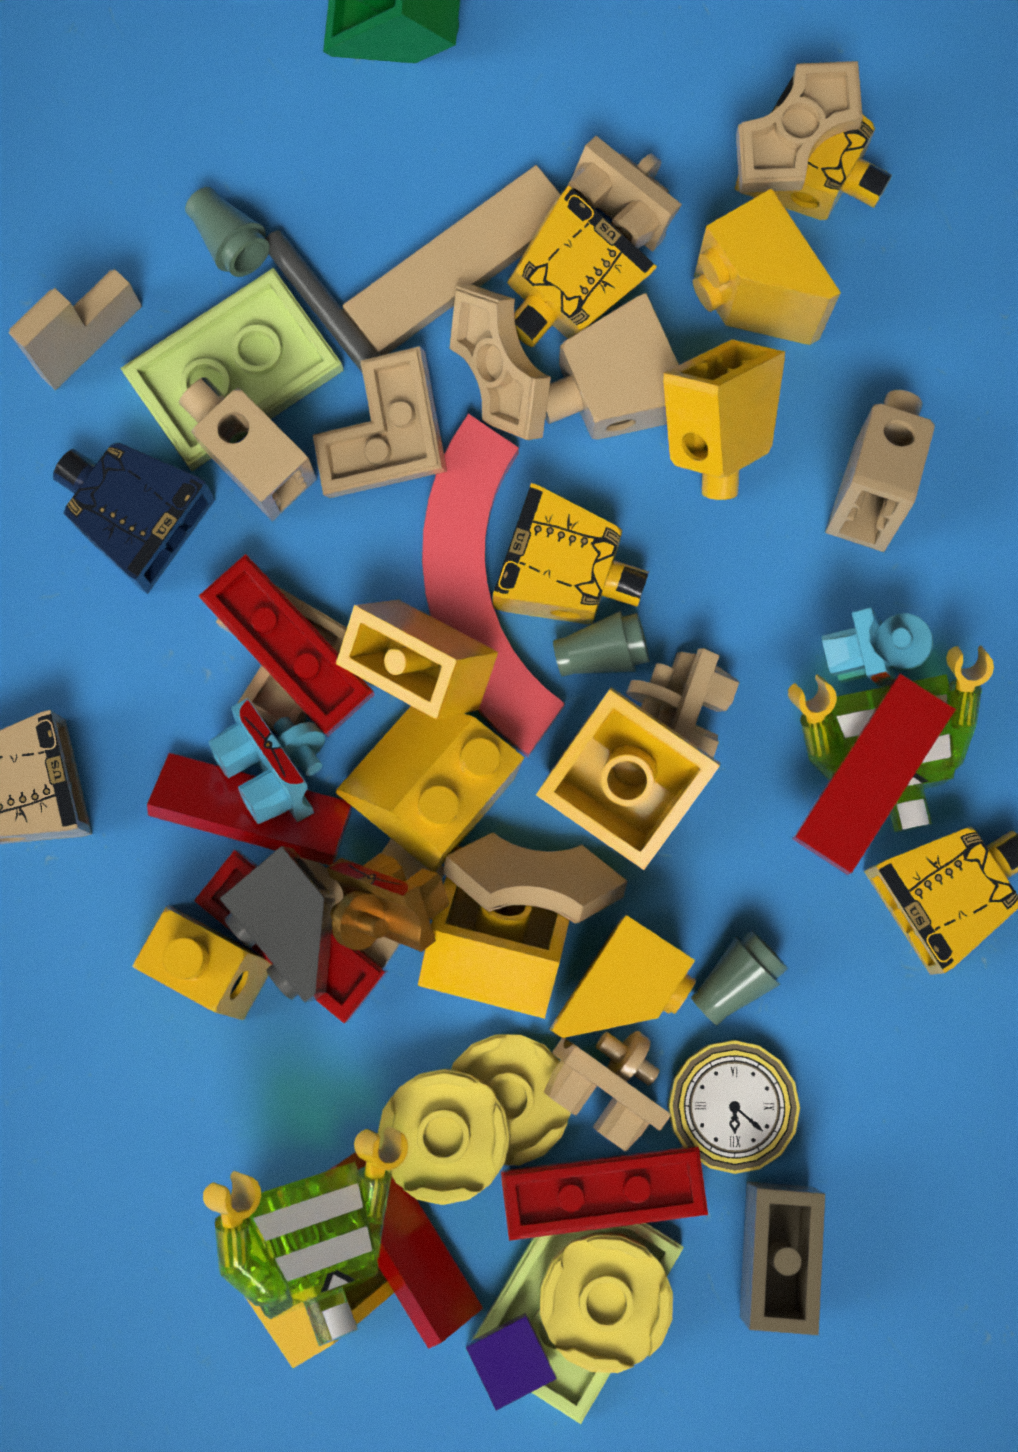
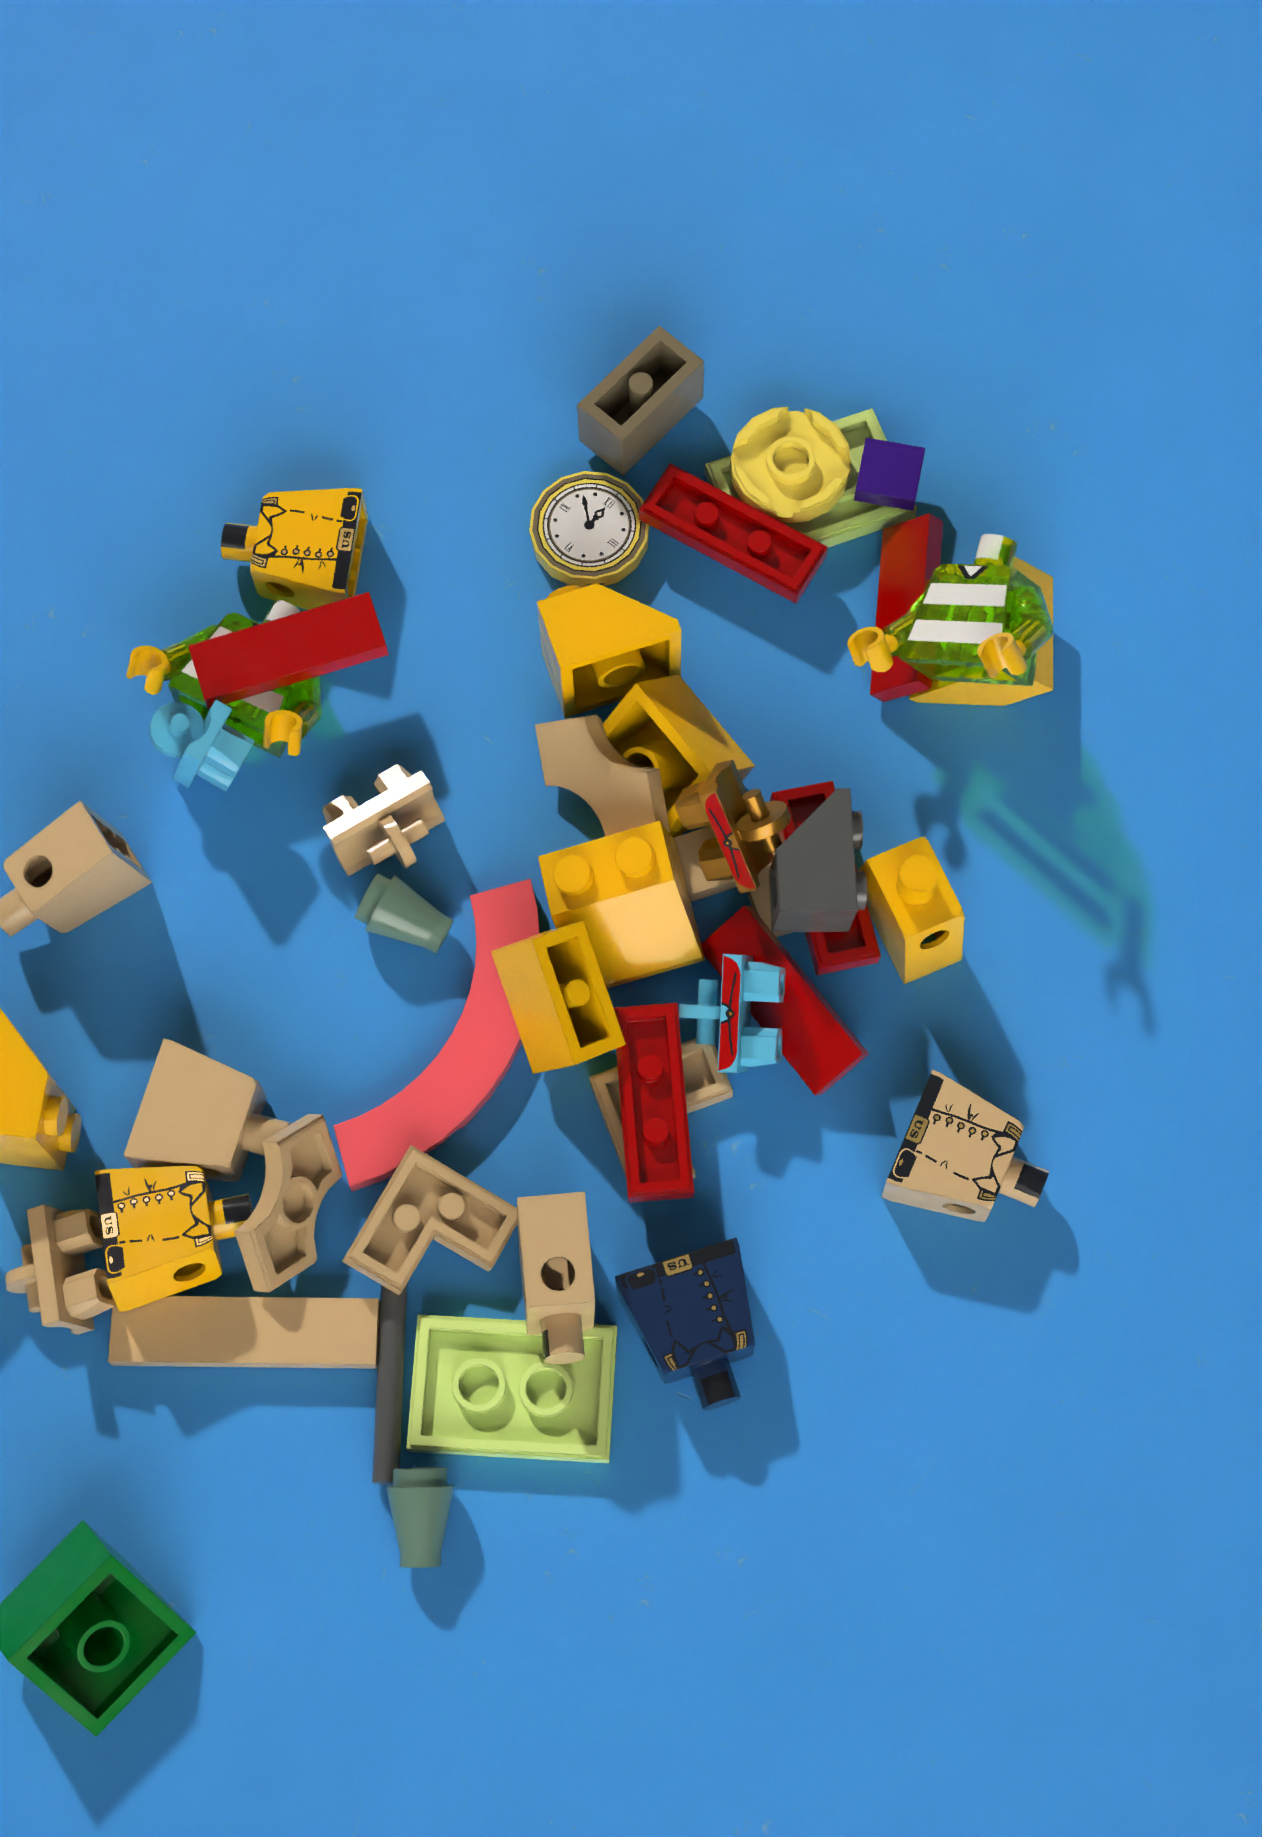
camera: 140 degrees left, 10 degrees down
(64, 336) = (627, 1511): tan tile -> none
(452, 1132) = (808, 656): light yellow tile -> none
(518, 1075) = (751, 653): light yellow tile -> none
(563, 562) = (379, 1000): yellow torso -> none
(627, 778) = (476, 786): yellow slope -> none
(629, 1109) = (665, 576): tan hips -> none
(723, 412) = (177, 1001): yellow torso -> none
(739, 977) = (503, 604): sand green cone -> none

